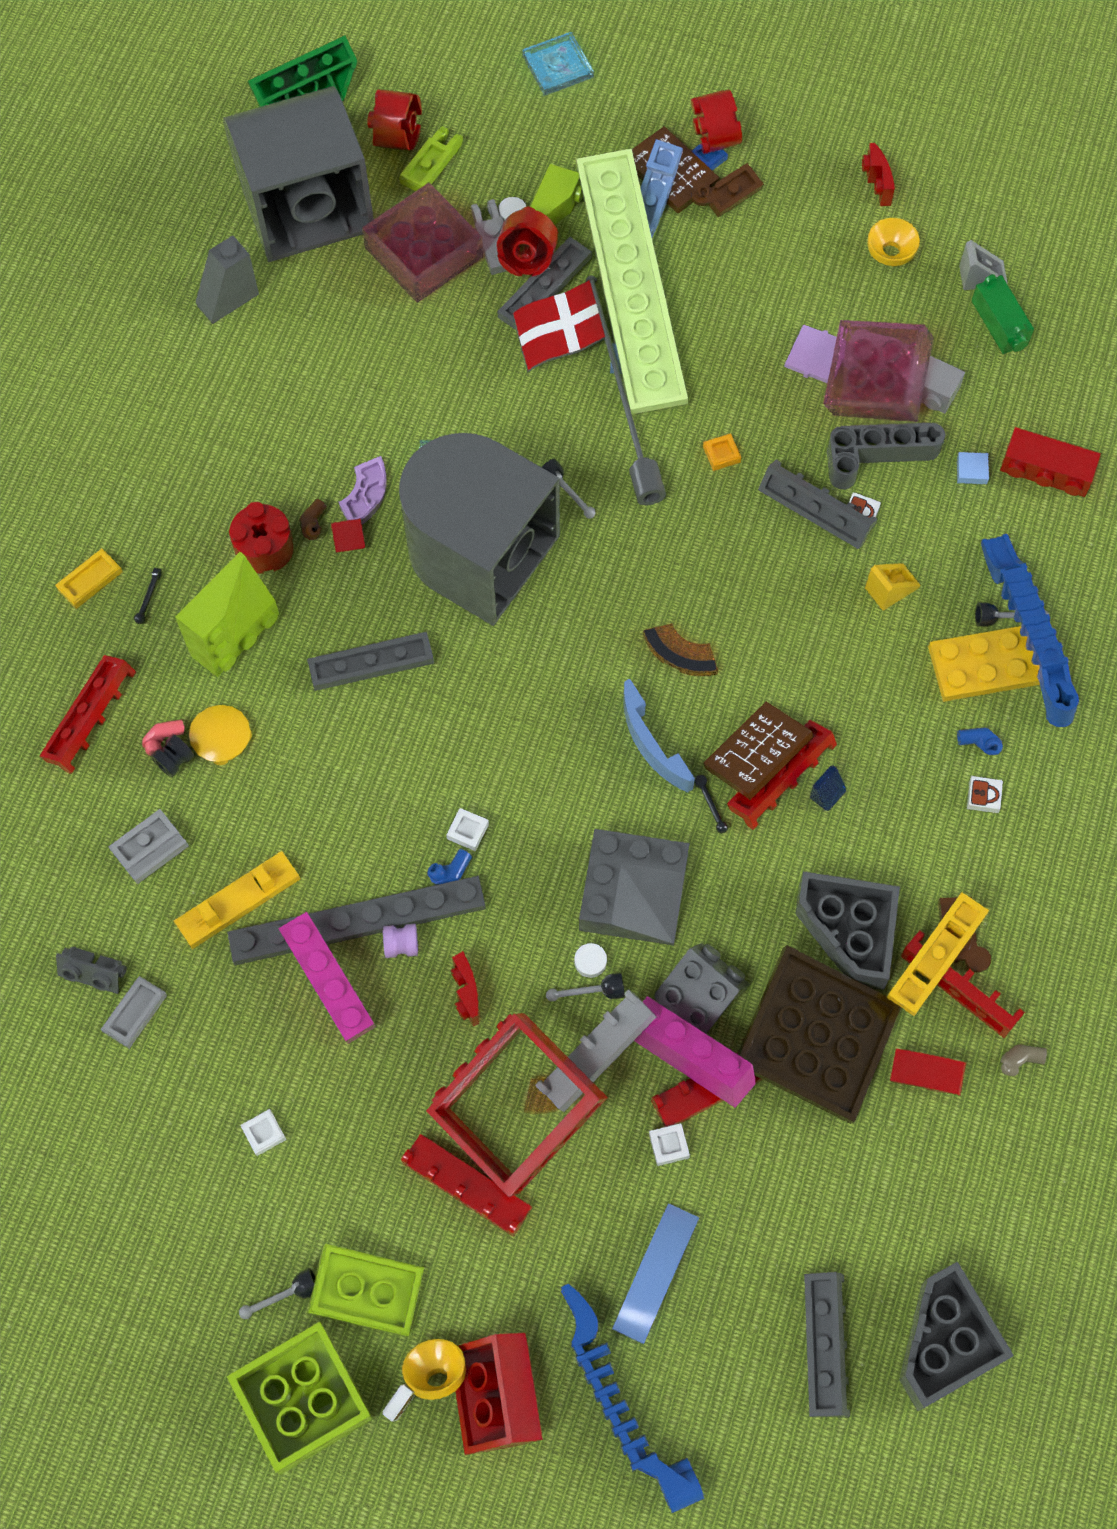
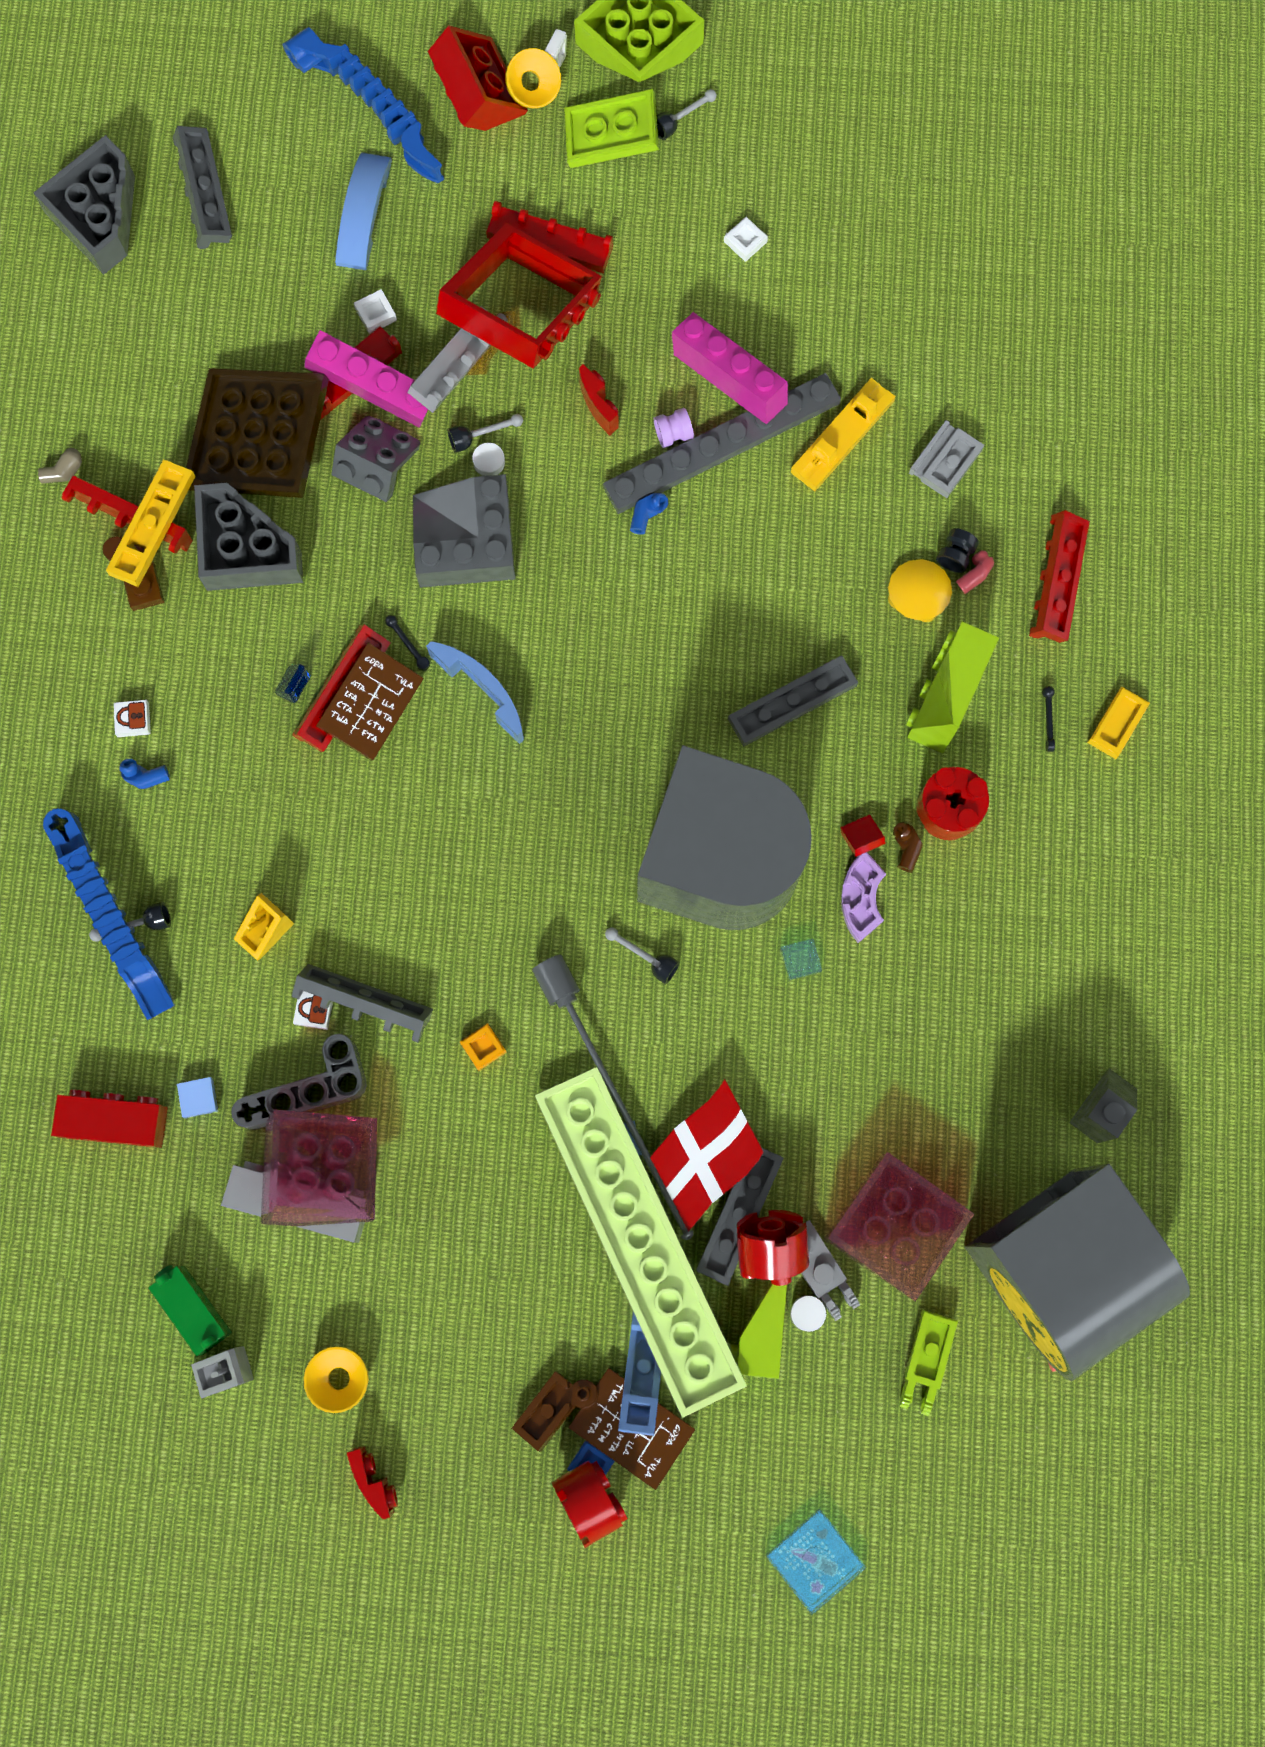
camera: 165 degrees right, 10 degrees up
(78, 966) = (969, 336): dark grey hinge -> none
(134, 1012) = (901, 311): light grey tile -> none
(315, 70) = (1121, 1431): green wedge -> none
(395, 119) = (988, 1397): red brick -> none
(467, 829) = (641, 551): white plate -> none
(679, 653) = (475, 793): clear orange tile -> none
(812, 353) = (403, 1207): lavender piece -> none
(928, 1071) = (144, 428): red slope -> none
(983, 664) = (153, 862): yellow plate -> none

